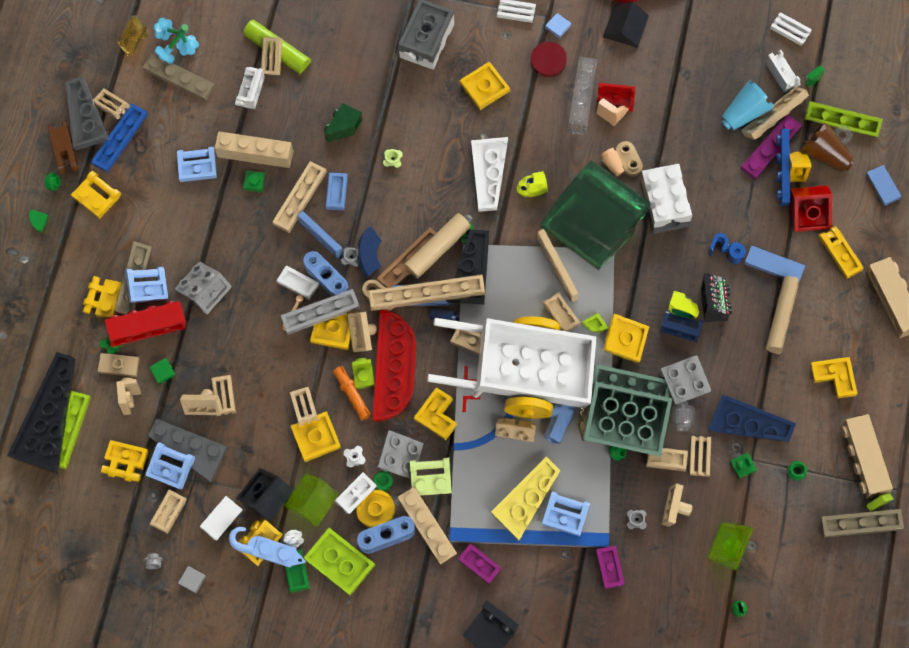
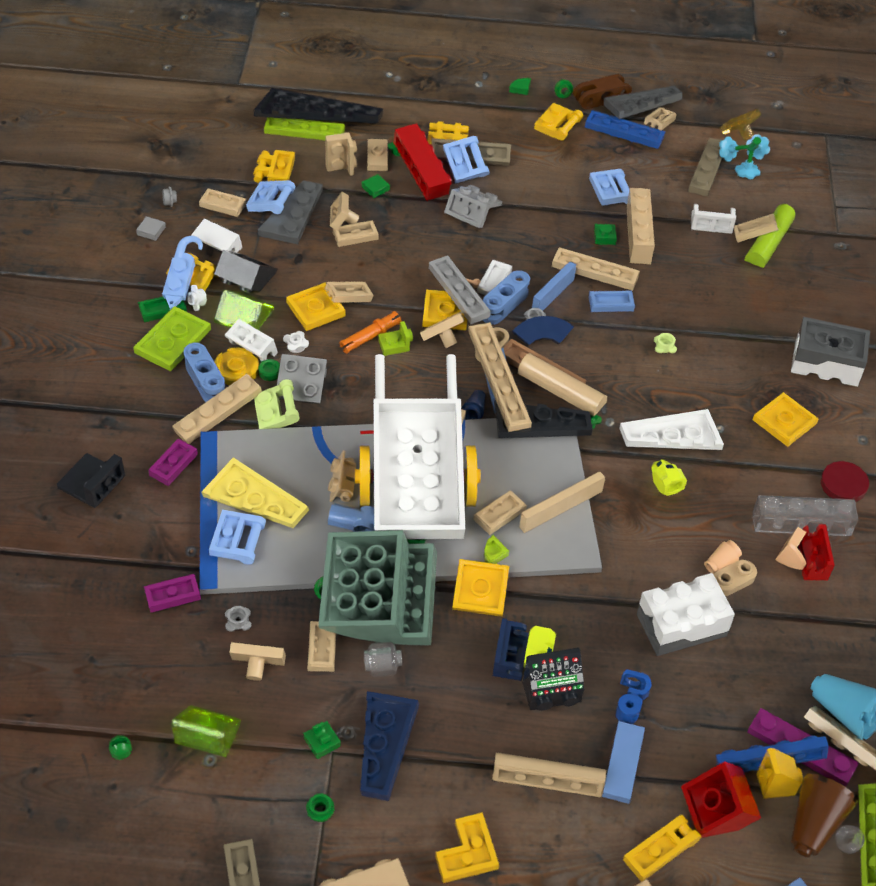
camera: 75 degrees right, 20 degrees down
(344, 123) = (693, 295): dark green slope -> none
(394, 366) = (407, 364): red plate -> none
(432, 414) = (347, 403): yellow plate -> none
(595, 215) = (638, 533): clear green slope -> none
(685, 380) = (431, 652): light grey bracket -> none
(700, 439) = (330, 683): tan tile -> none

